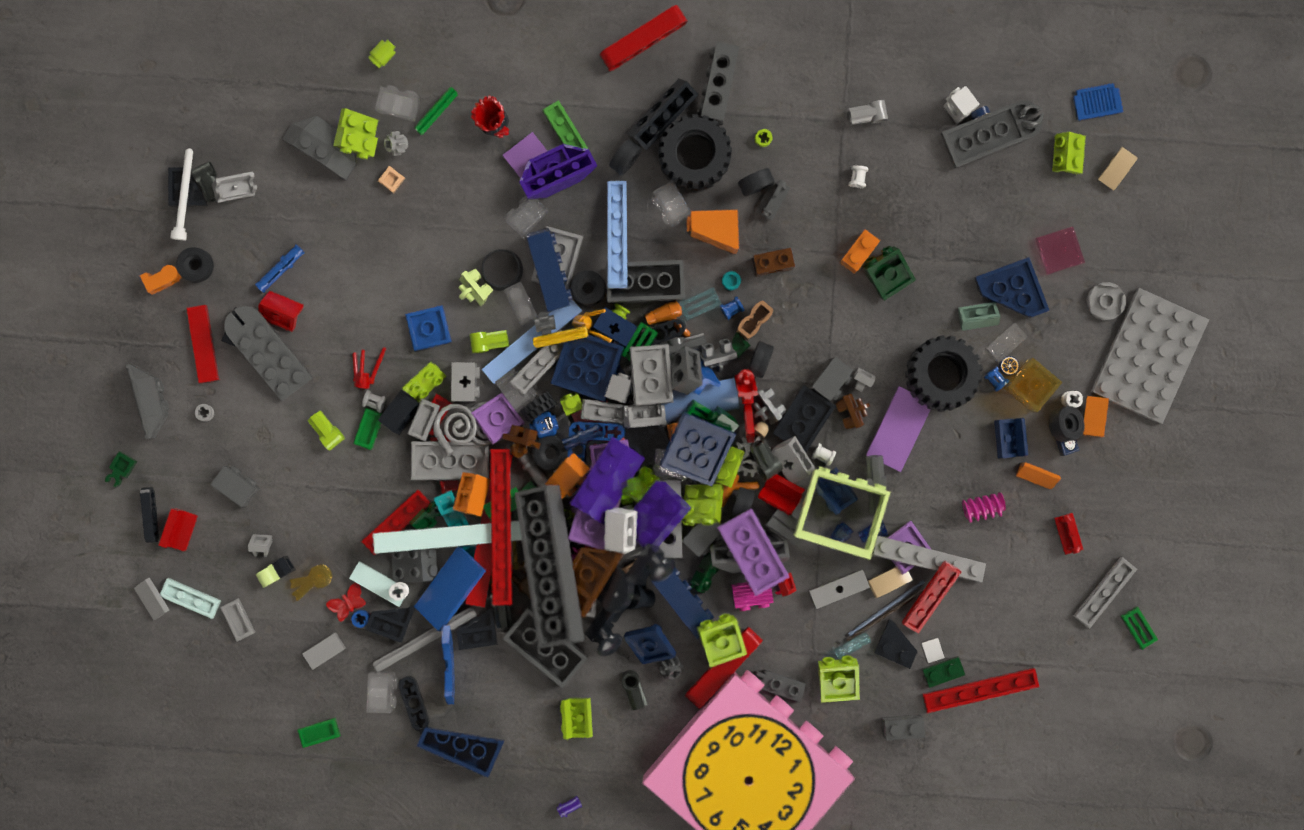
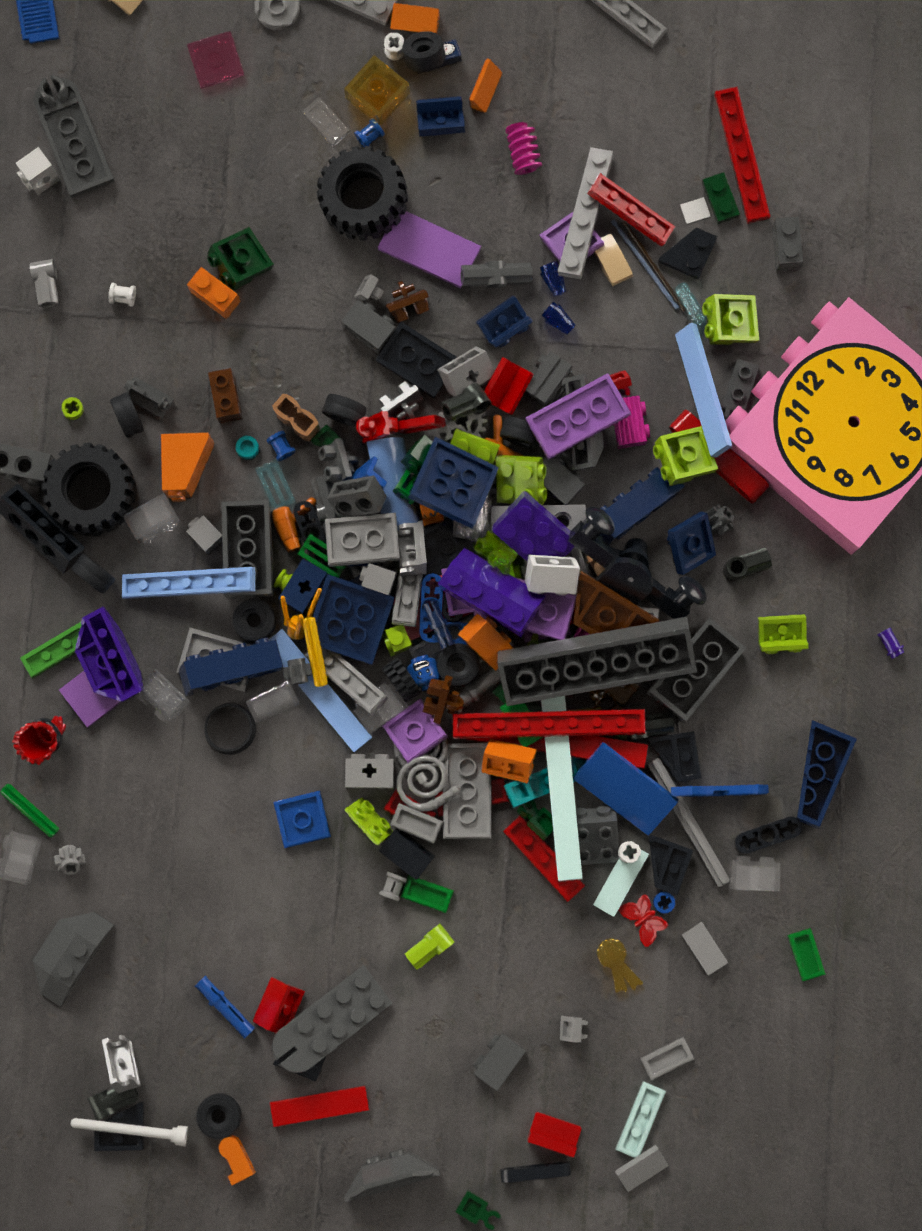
camera: 85 degrees left, 5 degrees down
(202, 418) = (412, 1107): light grey bush -> none
(275, 571) = (606, 1010): leg -> none
(356, 134) = (57, 908): lime plate -> none
(361, 378) = (364, 900): red plant -> none
(391, 179) = (114, 867): light nougat tile -> none
(471, 289) = (254, 763): yellowish green hips -> none
(484, 341) = (319, 748): lime piece -> none
(658, 246) = (204, 534): none -> light grey brick
(704, 580) = (612, 480): dark green hinge -> none
(761, 429) = (429, 409): tan hinge -> none
(777, 656) = (703, 390): none -> light blue tile
(823, 454) = (460, 336): white bush -> none
(850, 585) = (617, 306): light grey tile -> none
(860, 484) = (495, 291): yellowish green window -> none
(979, 316) = (293, 154): sand green slope -> none
(980, 112) = (47, 150): dark blue tile -> none
(1009, 366) = (353, 119): tile -> none
(1014, 288) = (260, 112): dark blue plate -> none
(1068, 534) = (555, 51): red hinge -> none
(1069, 153) = (98, 48): lime bracket -> none

